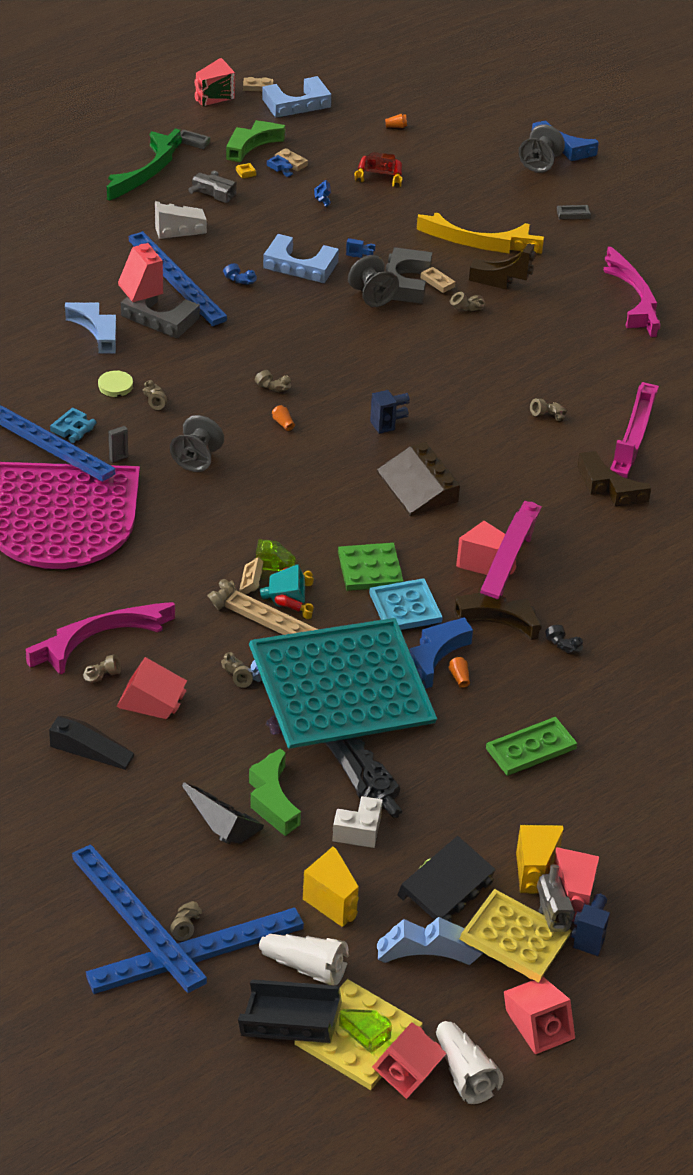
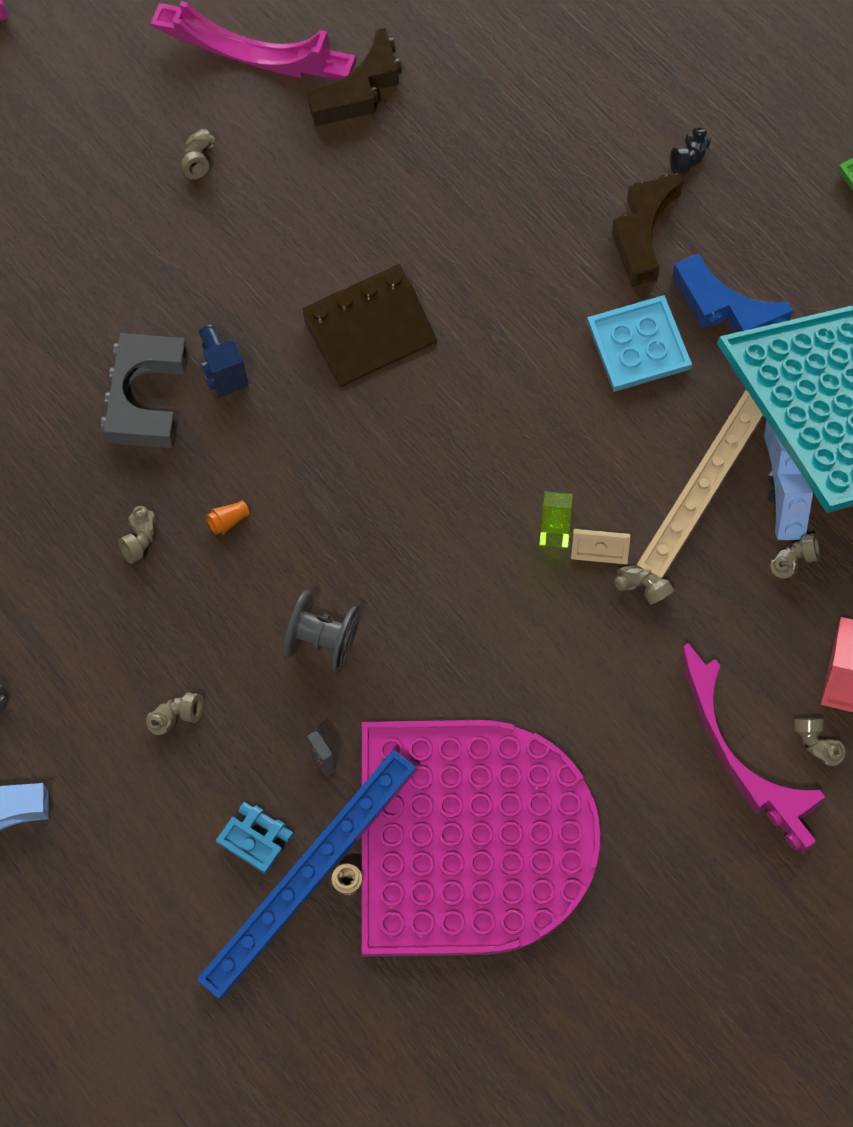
camera: 85 degrees left, 25 degrees up
(38, 452) = (345, 873): none -> tan cone
(115, 383) = (138, 781): yellowish green tile -> none
(288, 589) = (629, 493): teal torso -> none
(354, 375) = (136, 357): none -> dark grey arch
(369, 565) = (556, 391): bright green plate -> none
(459, 670) = (763, 276): orange cone -> none
(479, 548) = (533, 231): coral slope -> none
(518, 531) = (503, 179): dark pink slope -> none

